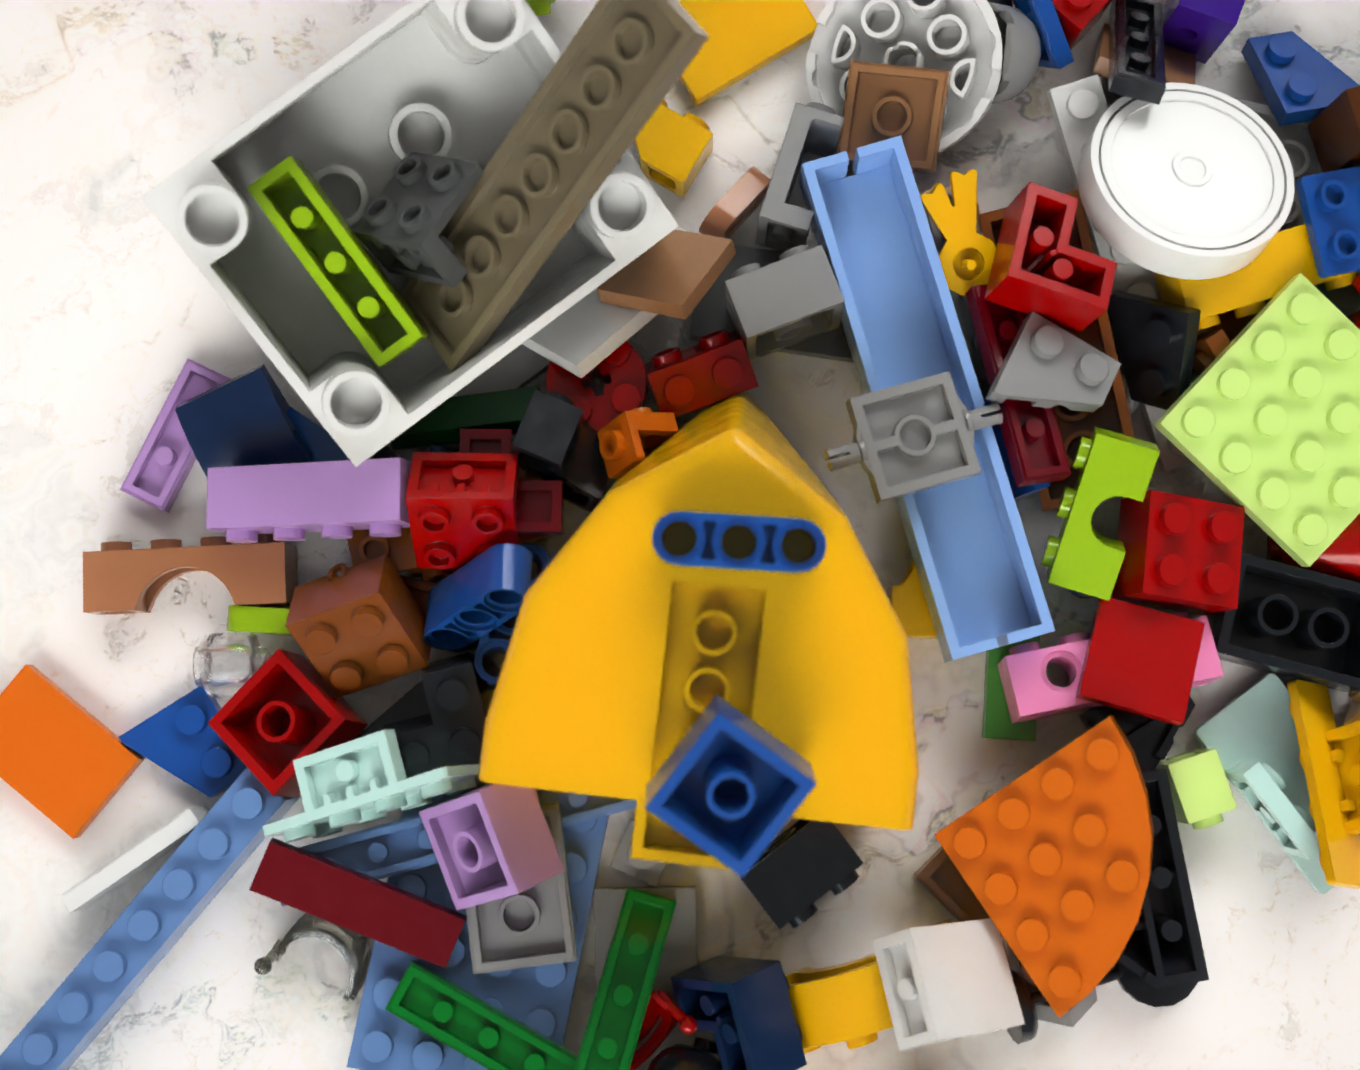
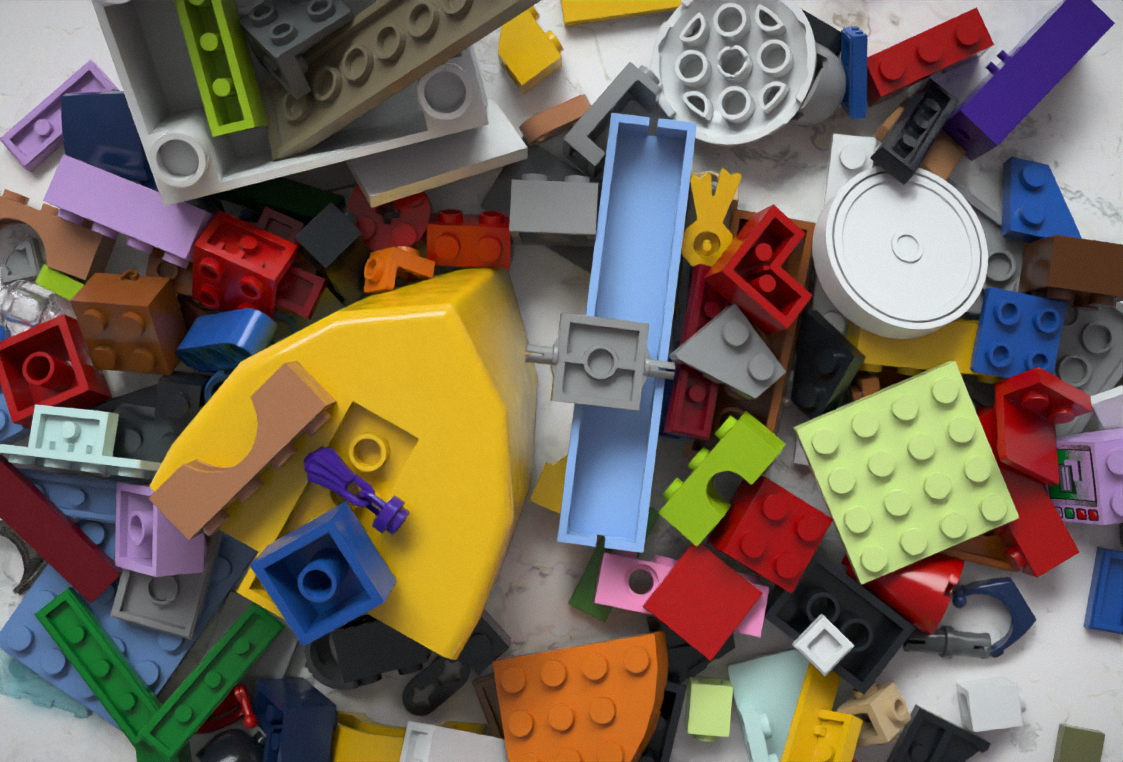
camera: 20 degrees right, 5 degrees up
(202, 617) = (22, 263): none -> light grey tile
(549, 756) = (285, 408): none -> nougat arch
(670, 274) = (476, 155): medium nougat tile -> none
(680, 668) = (330, 471): none -> dark purple piece
(731, 925) = (323, 665): none -> dark grey helmet
(767, 534) = (385, 394): blue beam -> none
(885, 900) = (441, 692): none -> black beam
(894, 102) = (707, 95): medium nougat tile -> none
(920, 836) = (485, 644): none -> black brick
(1297, 653) = (823, 644): none -> white tile

